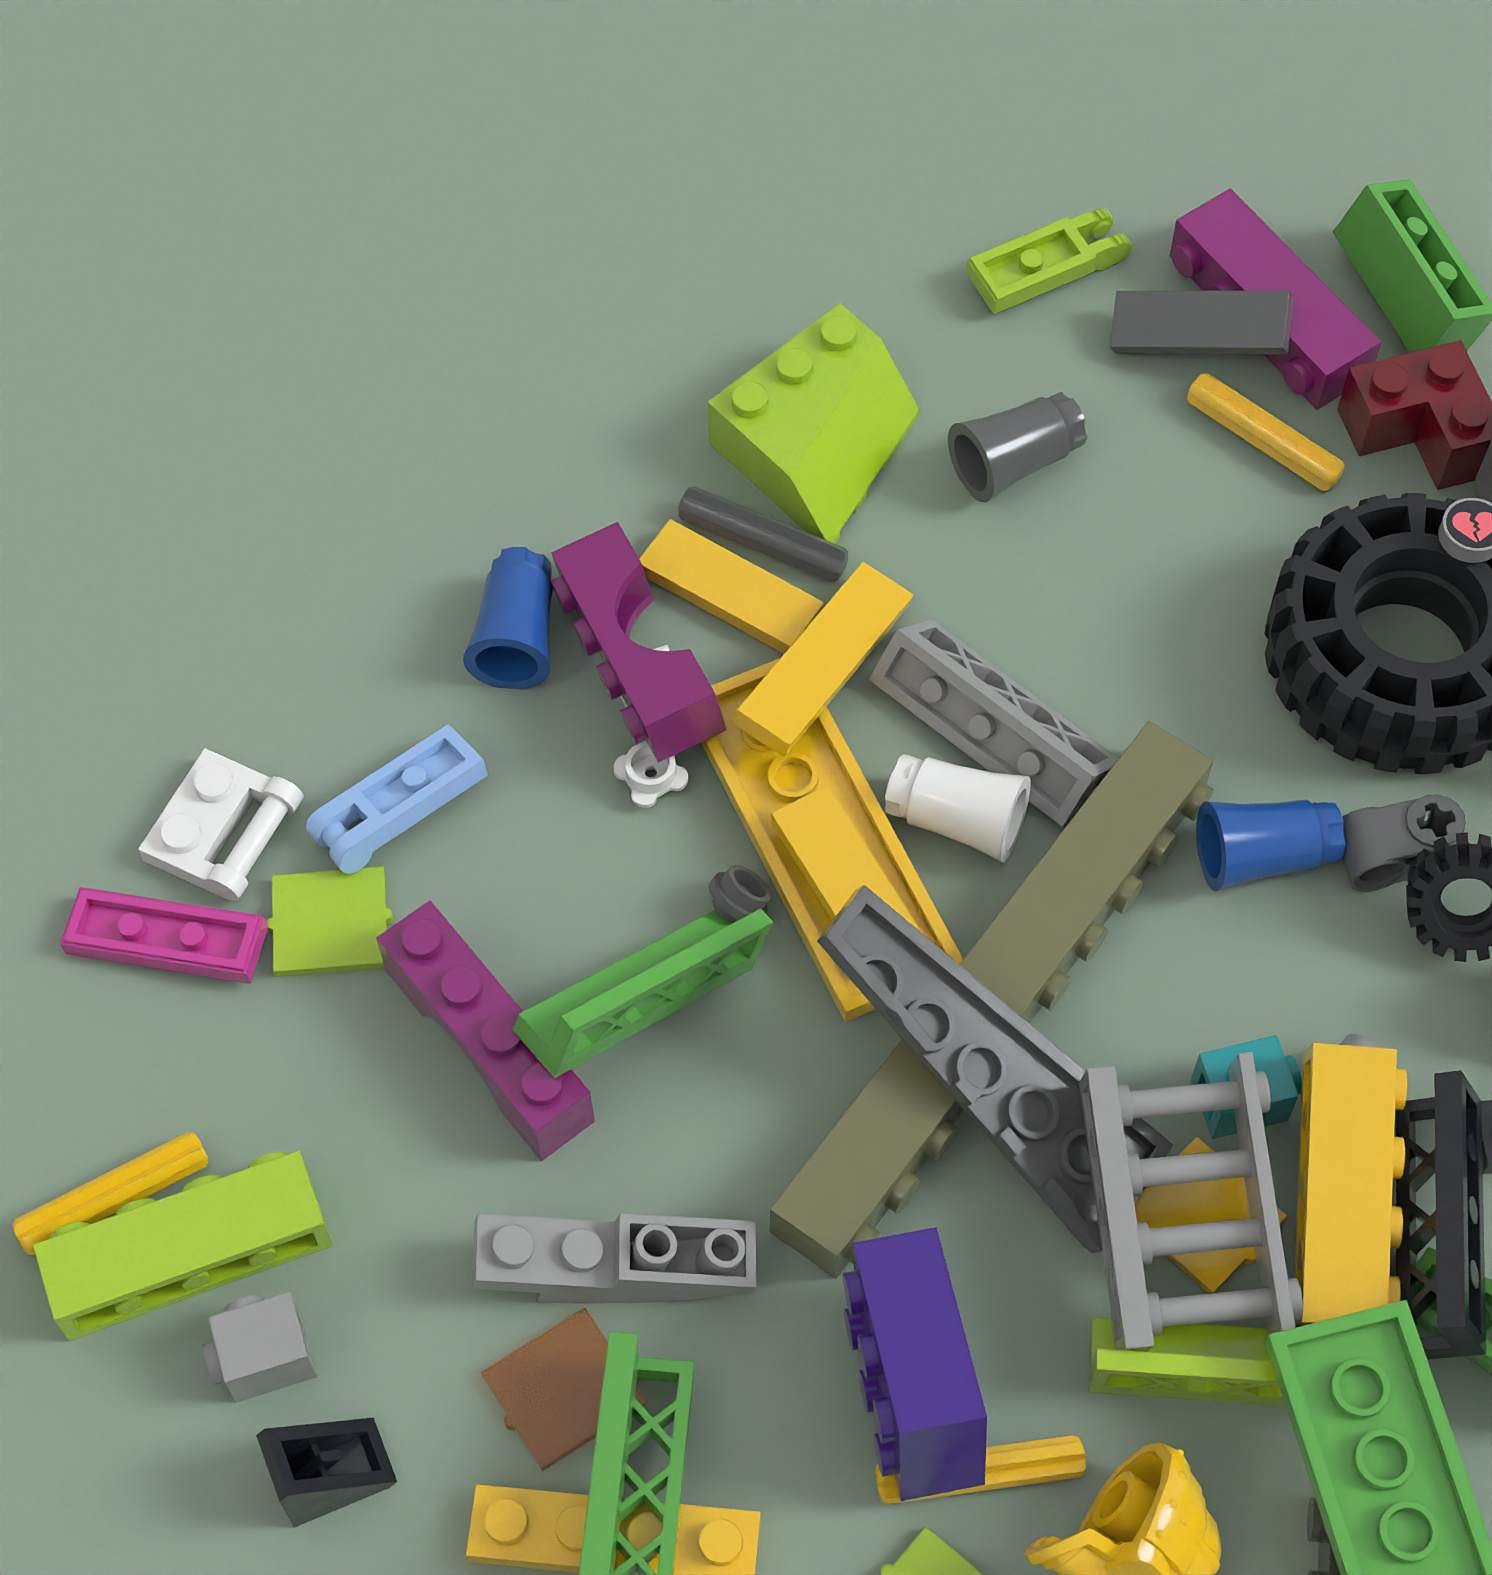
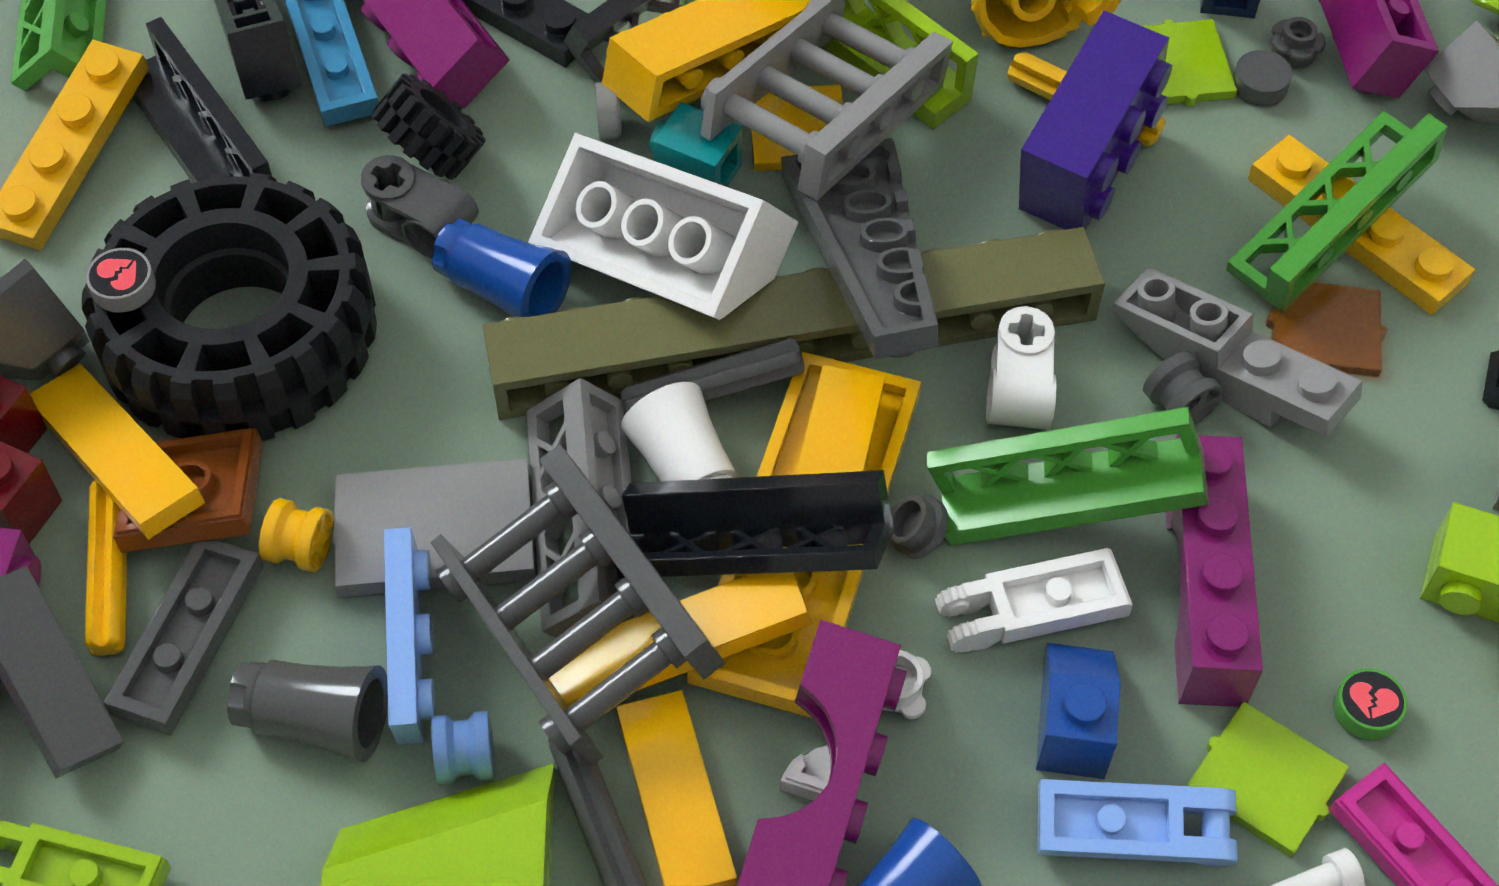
camera: 140 degrees left, 5 degrees down
(289, 1033) = (1370, 704): none -> tile
(505, 848) = (1078, 711): none -> blue slope
(598, 912) = (1036, 600): none -> white hinge
(629, 1184) = (1181, 384): none -> dark grey wheel
(771, 1085) = (1022, 371): none -> white piece
(850, 759) = (754, 517): none -> black fence
(892, 497) = (463, 748): none -> medium blue wheel
(895, 641) = (637, 593): none -> dark grey fence
(990, 896) = (728, 373): none -> dark grey axle
(1006, 521) = (407, 636): none -> light blue plate
(1087, 627) = (455, 500): none -> light grey tile
(1156, 429) = (184, 635): none -> dark grey plate
(1163, 536) = (296, 535): none -> yellow wheel
(1175, 953) = (662, 228): none -> white slope
(1265, 502) = (227, 475): none -> dark orange tile
(1330, 472) = (116, 451): none -> yellow tile

